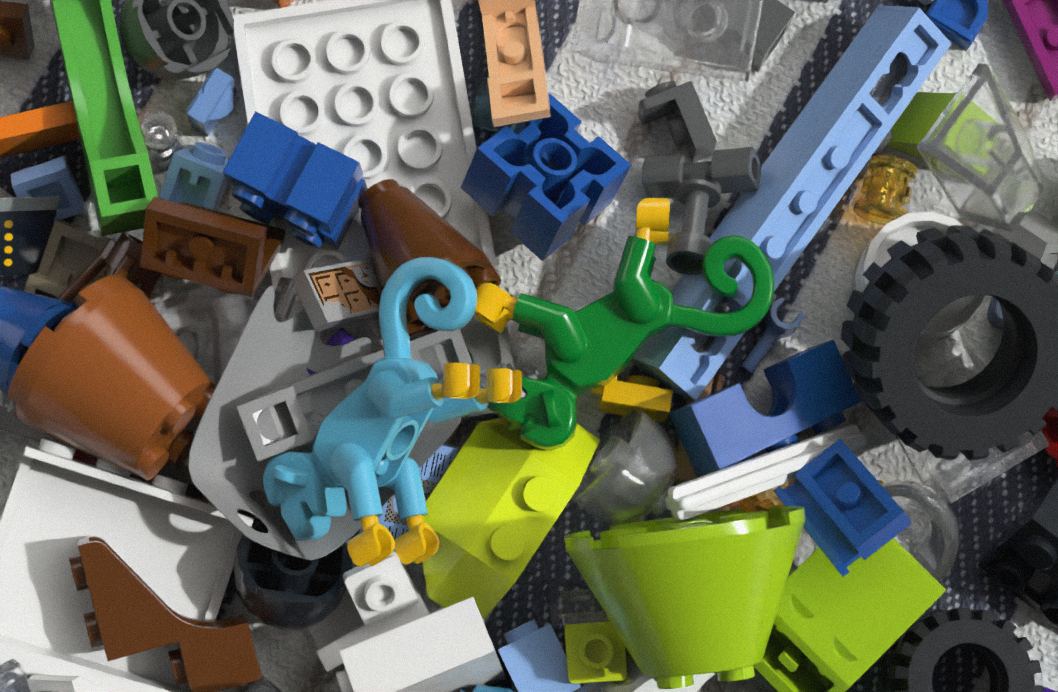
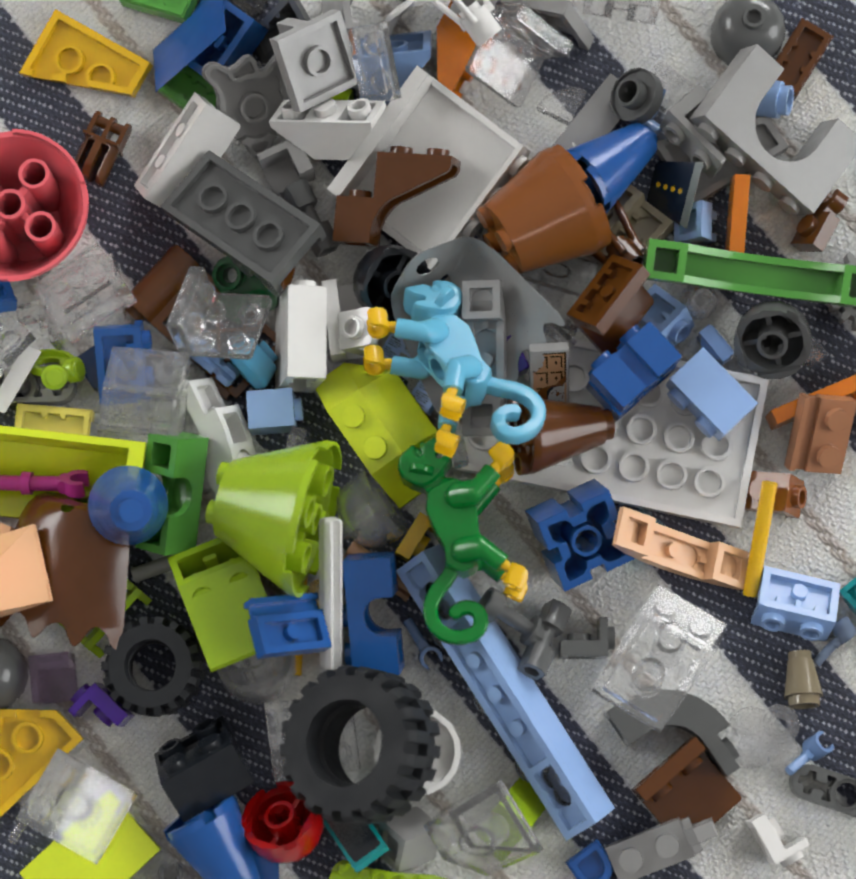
camera: 115 degrees right, 0 degrees up
(289, 69) = (710, 395): none -> light blue brick
(594, 653) = (264, 439): neon yellow bracket -> none
(886, 189) = (486, 759): clear yellow bush -> none

